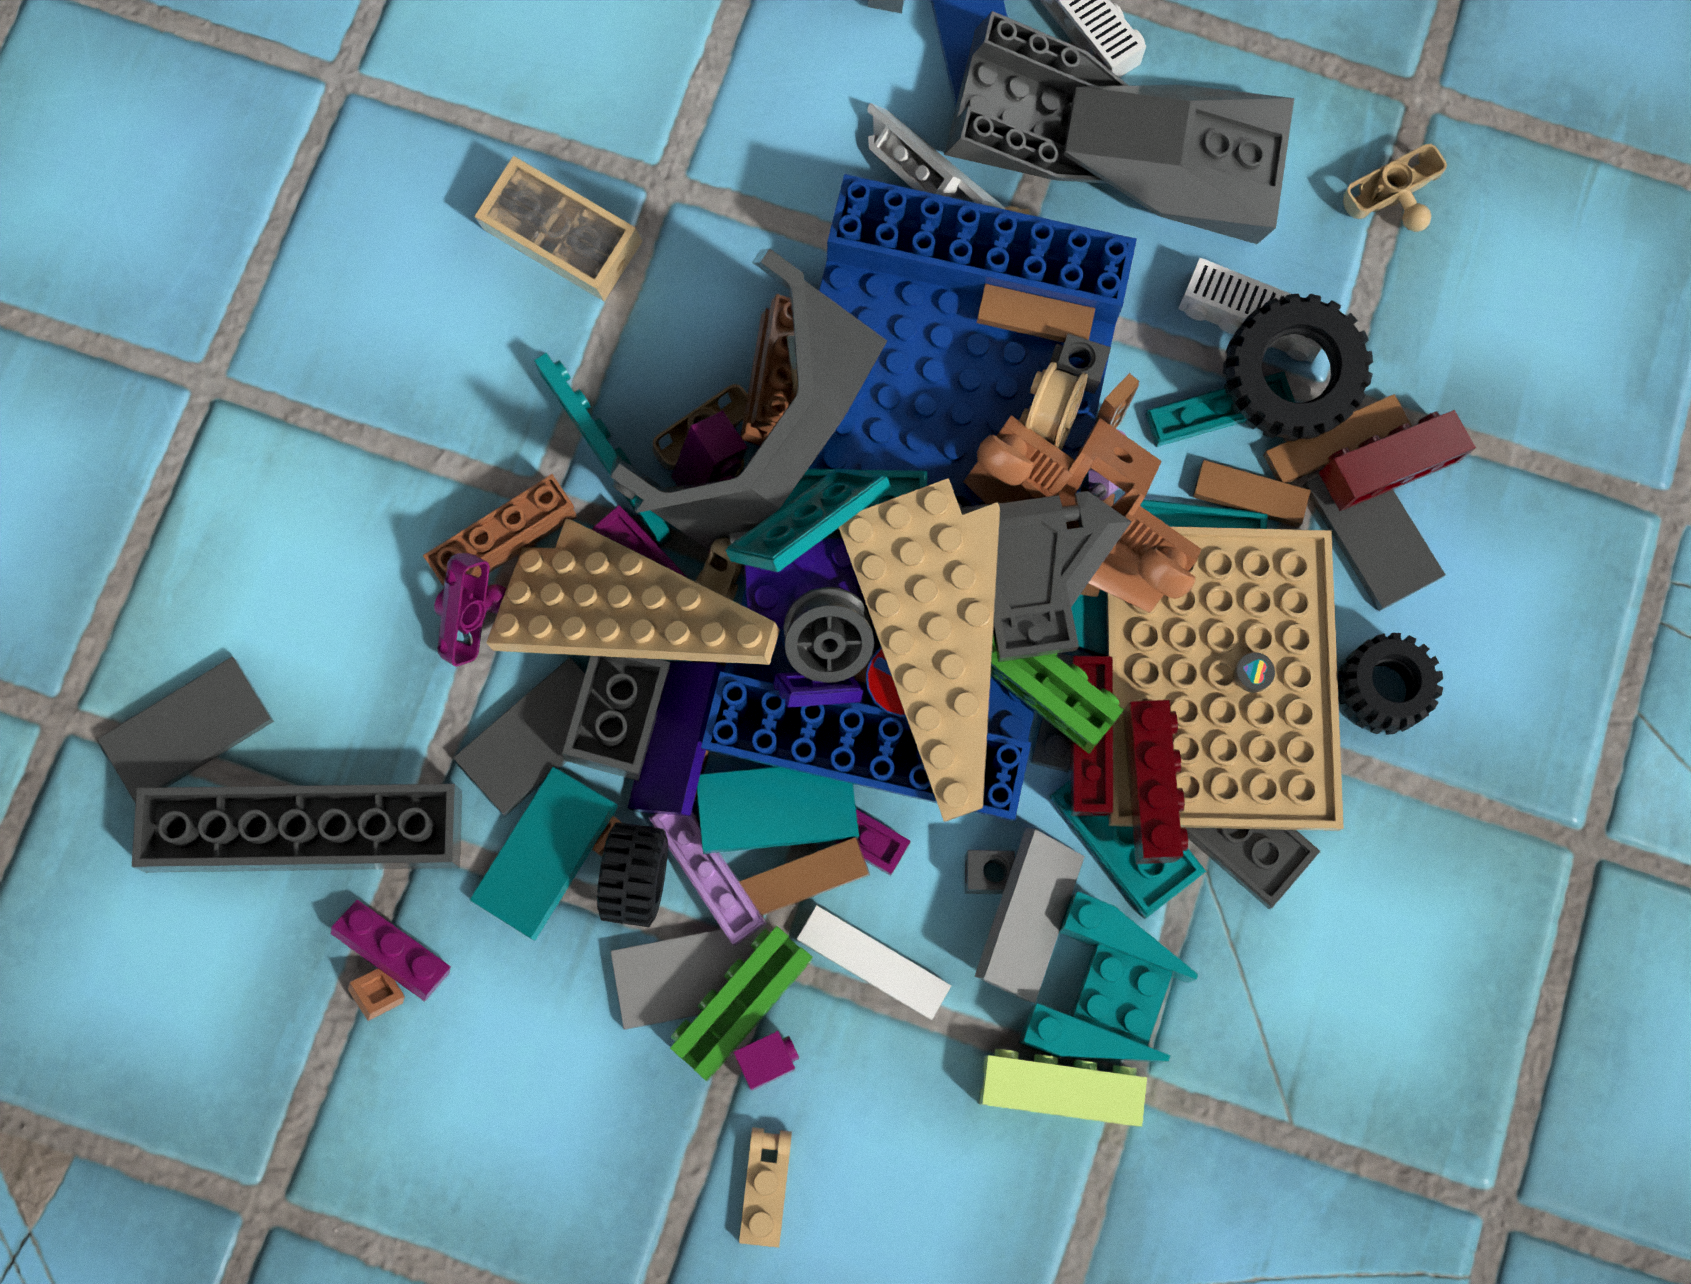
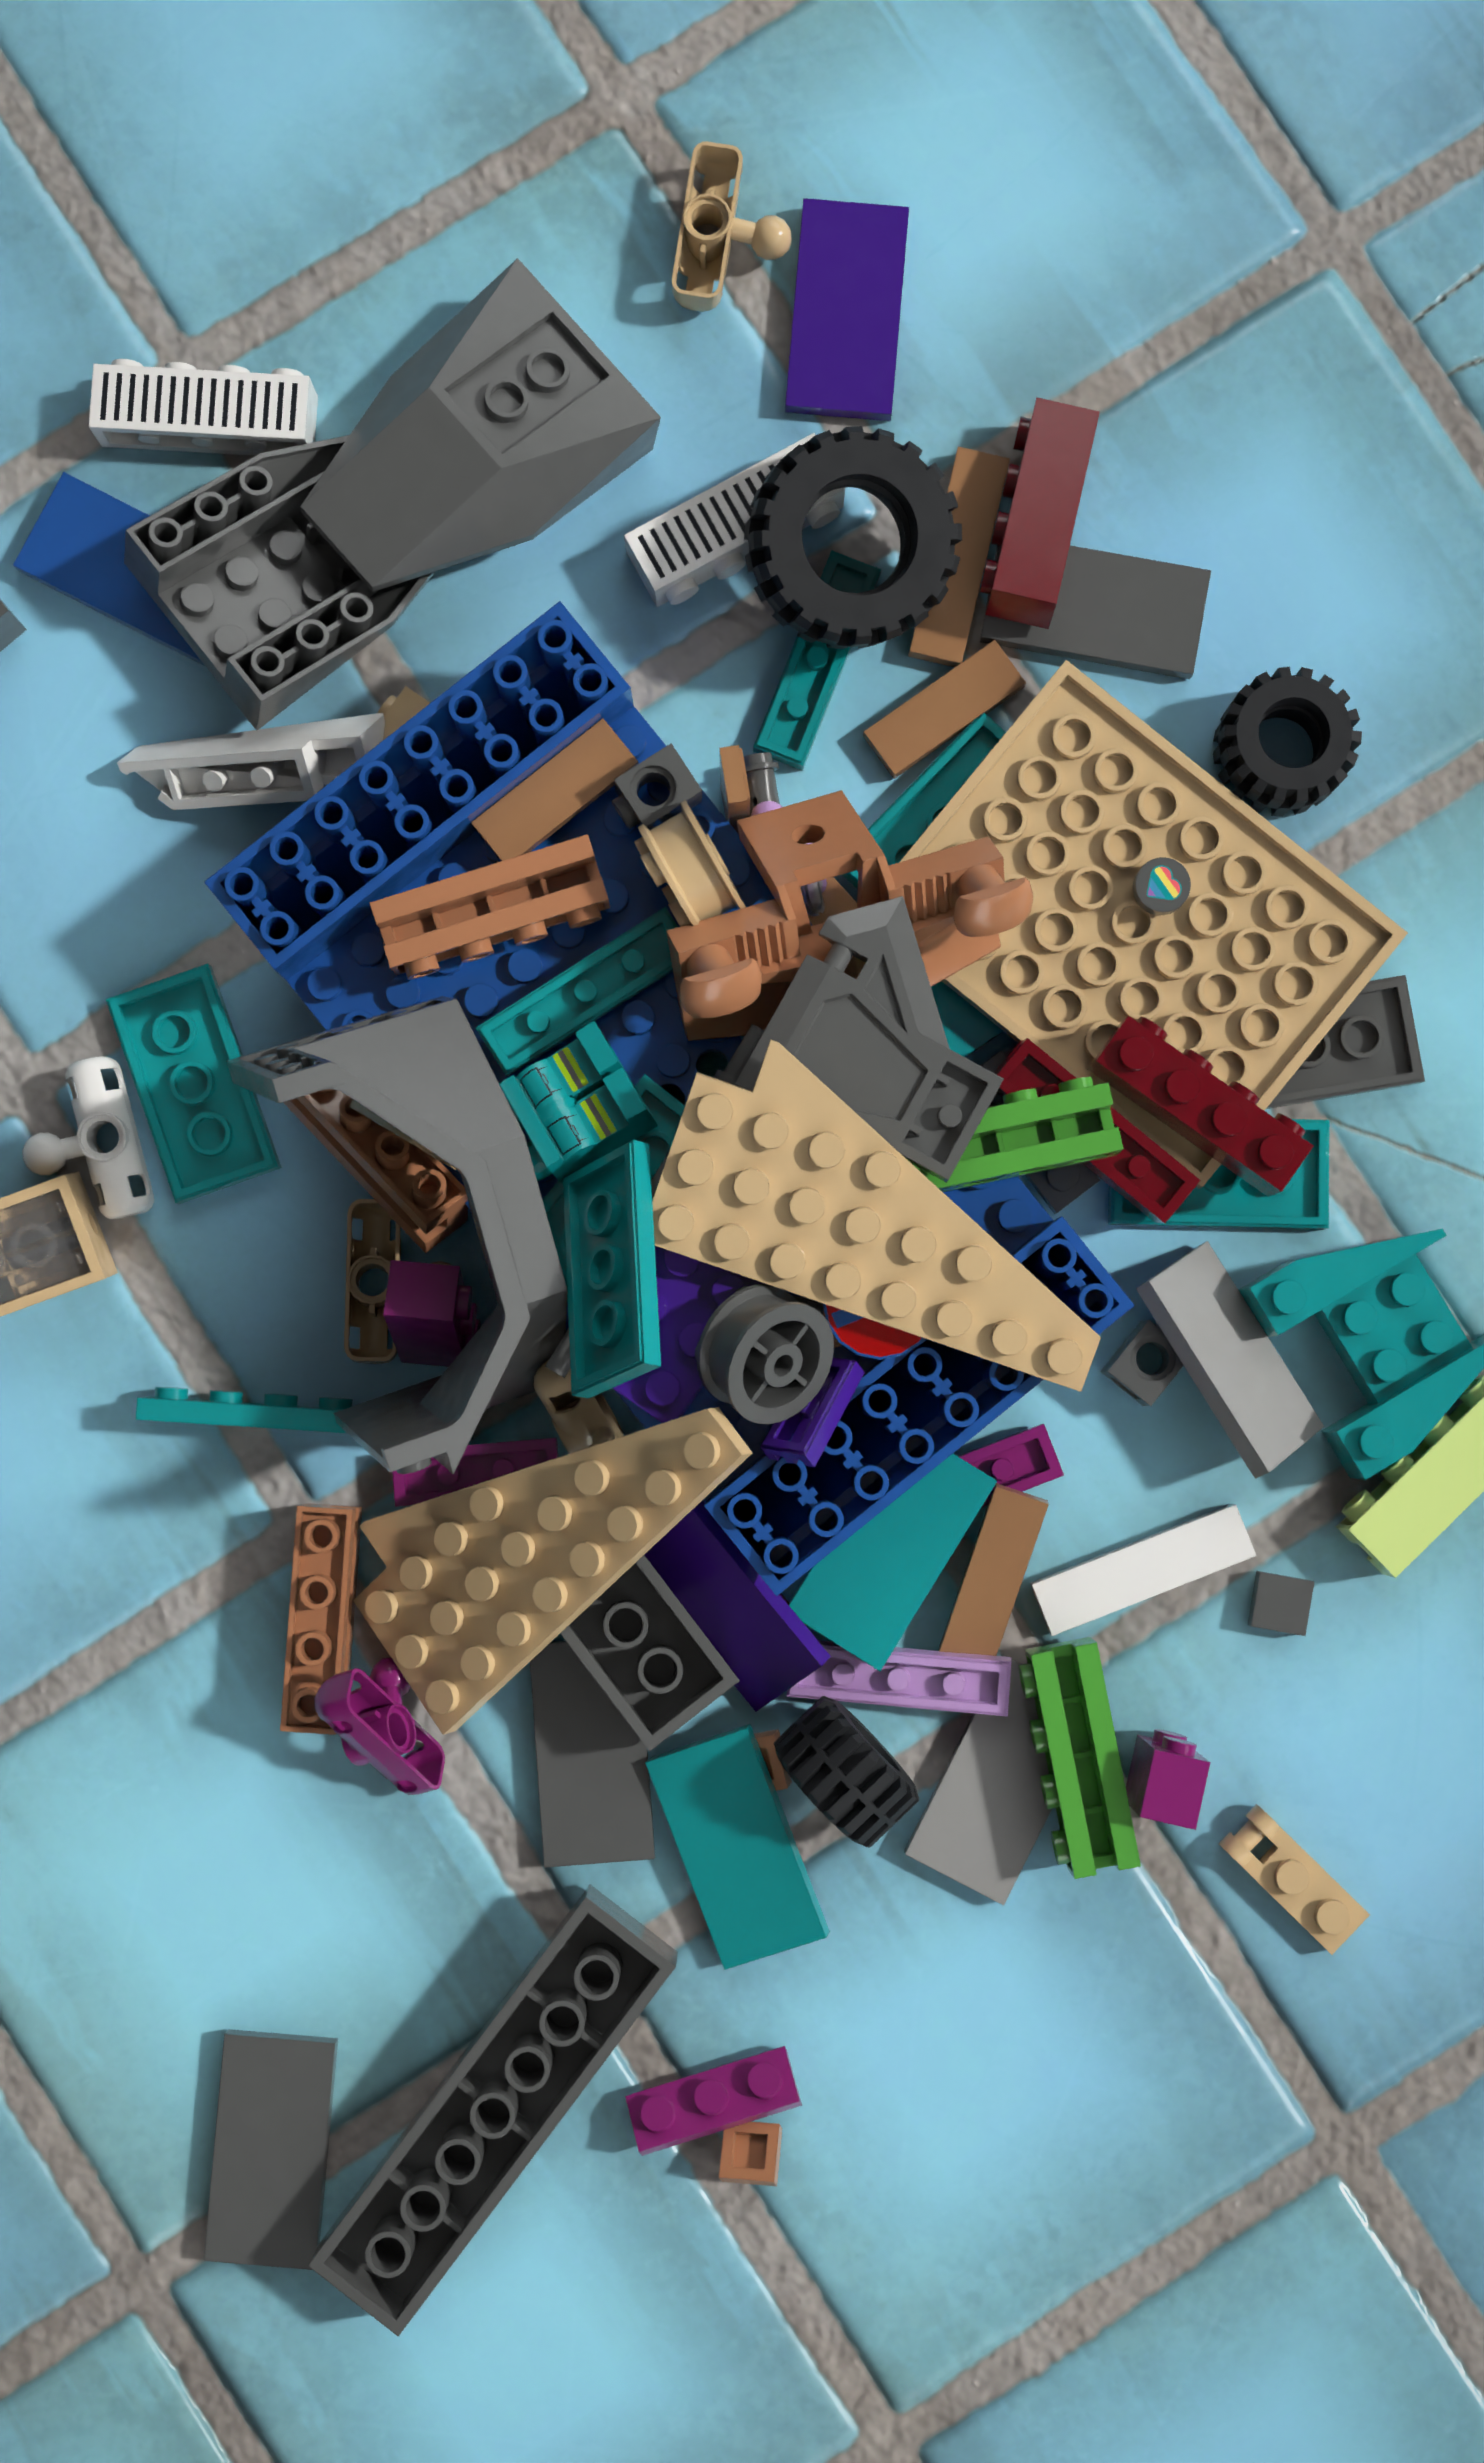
camera: 45 degrees left, 10 degrees up
(680, 224) = (93, 1109): none -> white piece
(721, 277) = (177, 1054): none -> teal tile
(880, 443) = (576, 1105): none -> teal hips
(916, 1056) = (1280, 1603): none -> dark grey tile
(937, 406) = (580, 994): none -> teal tile
(950, 325) = (490, 907): none -> nougat brick
(1134, 423) = (761, 778): none -> dark grey pin
(1414, 285) = (847, 309): none -> dark purple tile

